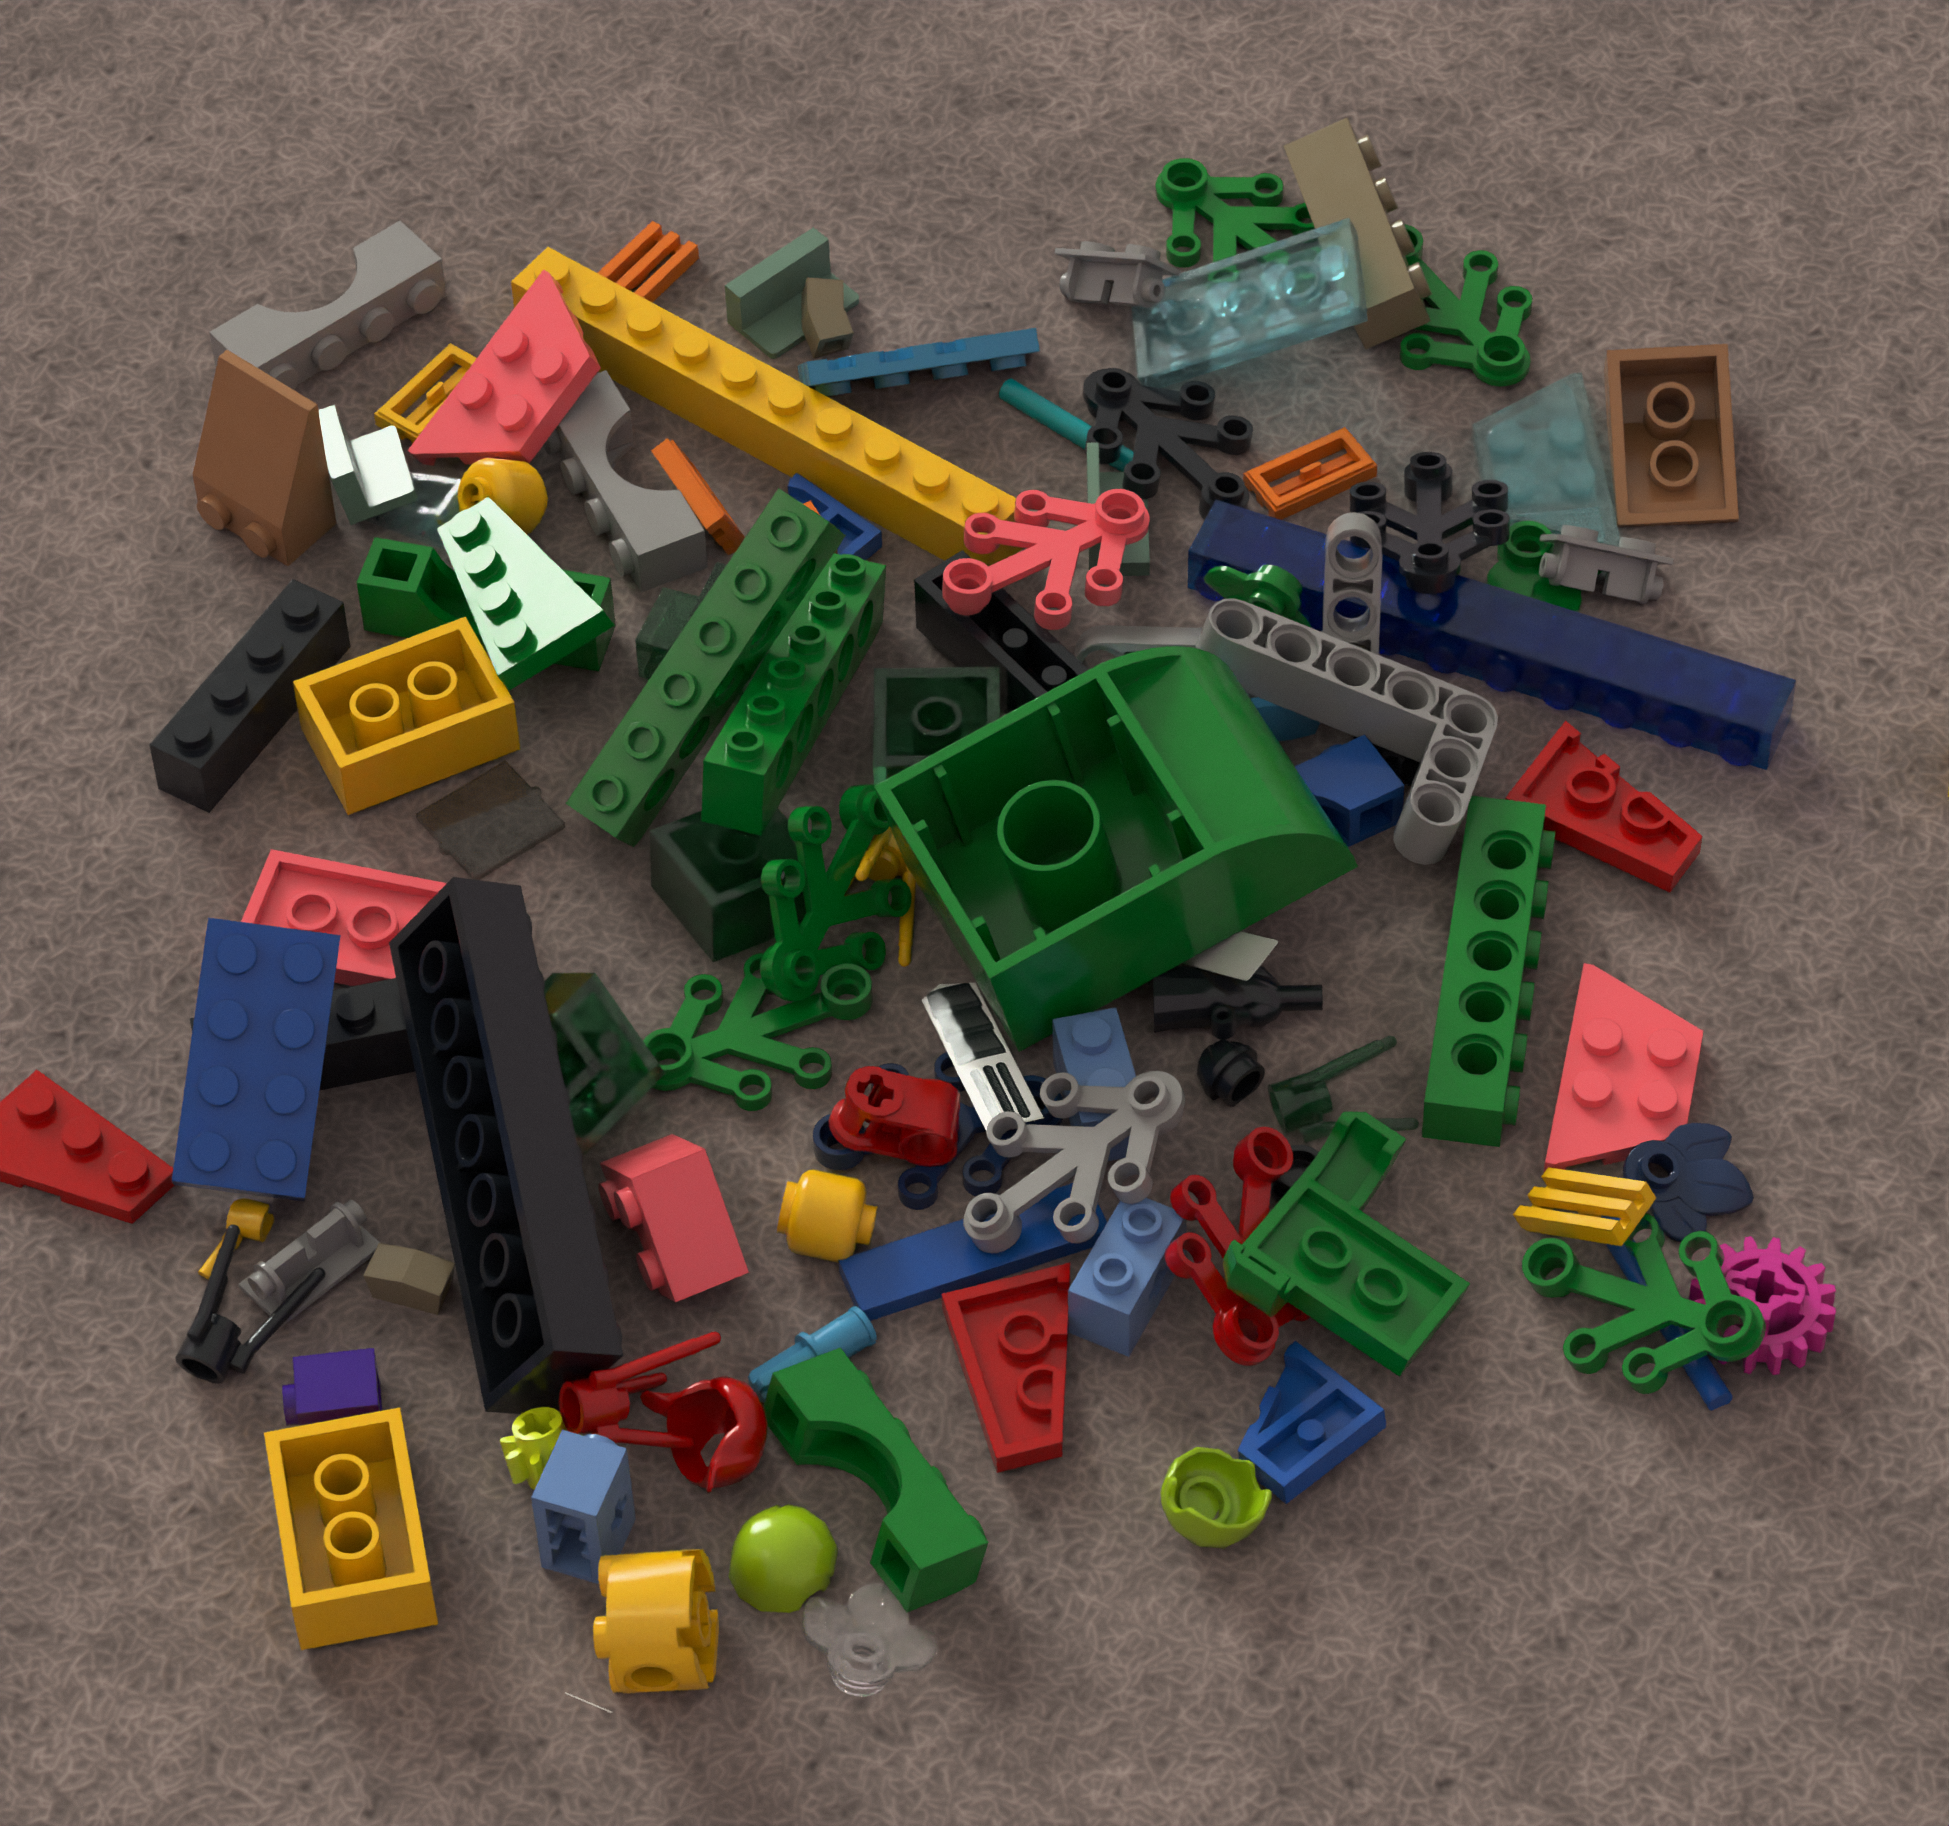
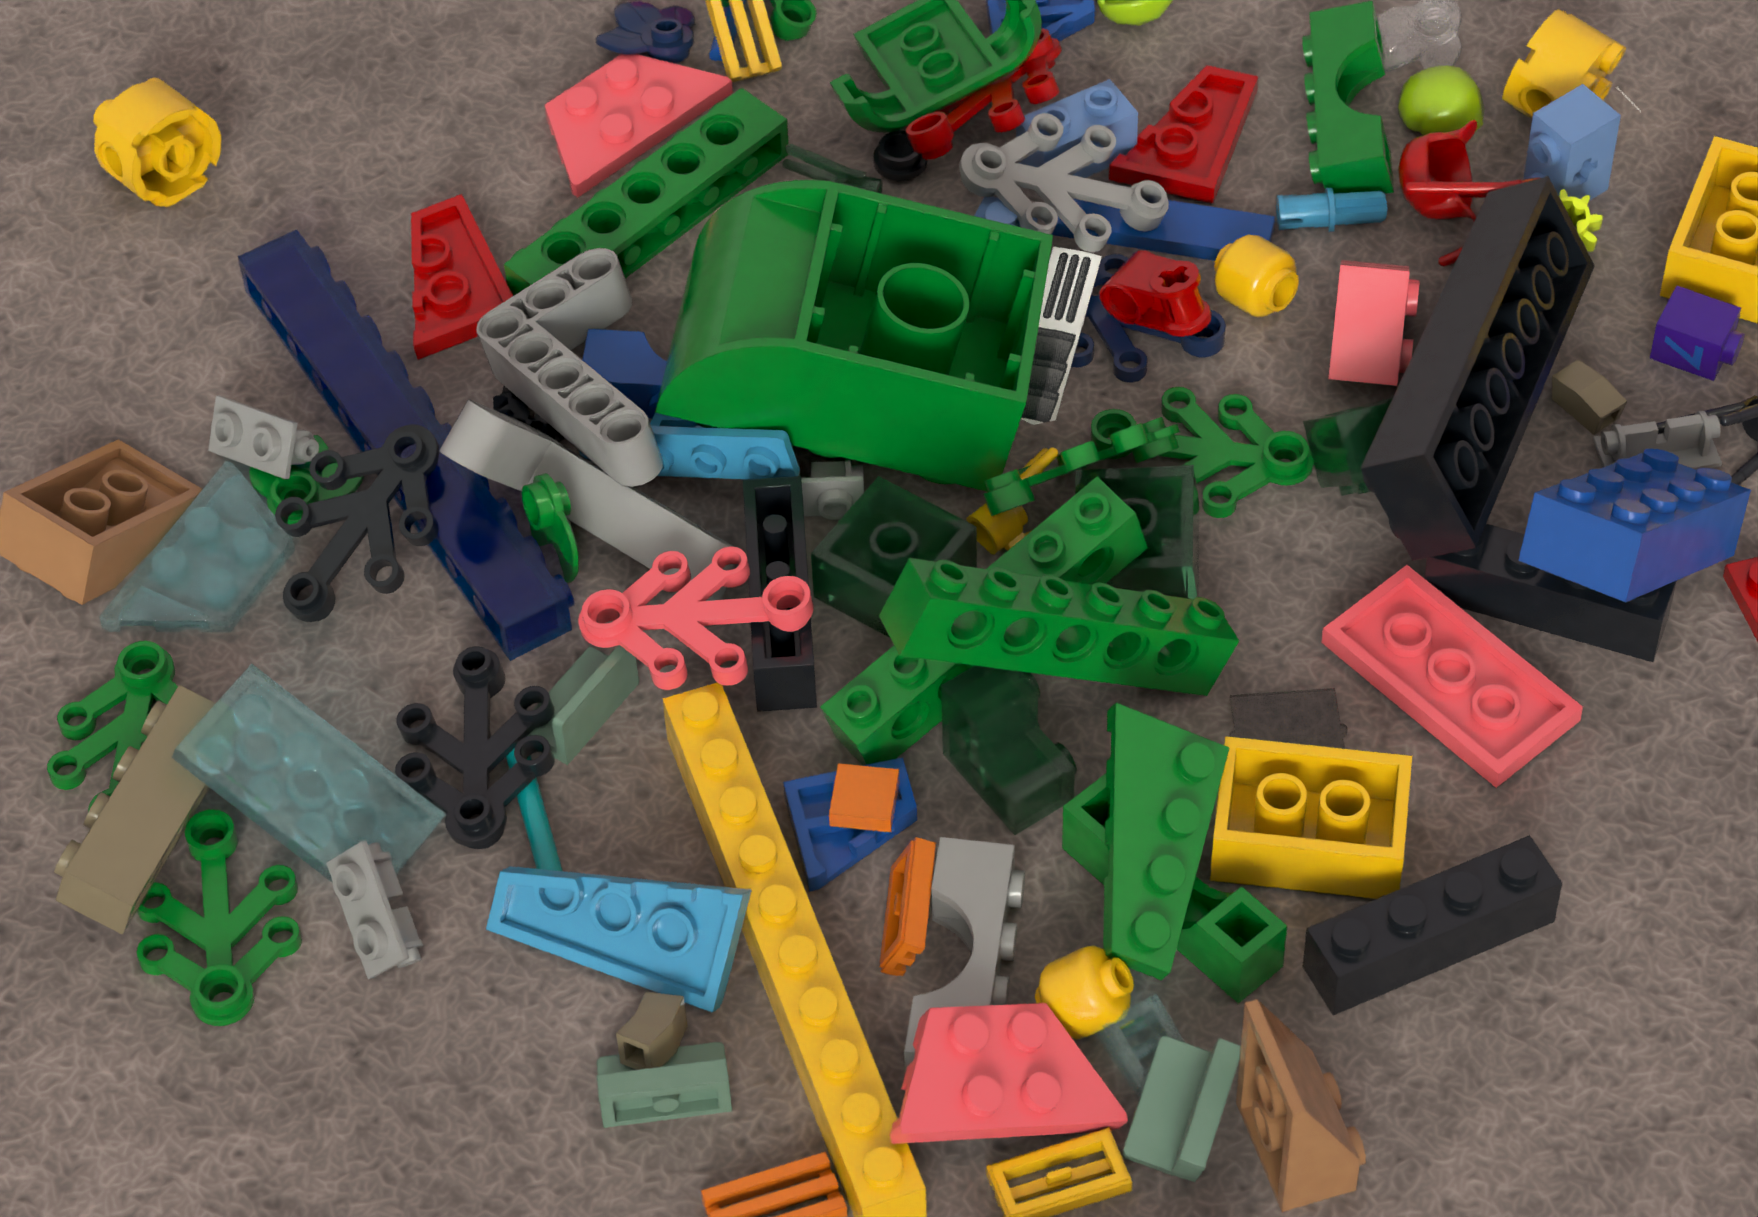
camera: 145 degrees left, 0 degrees up
(1316, 480) = (388, 671): orange tile -> none

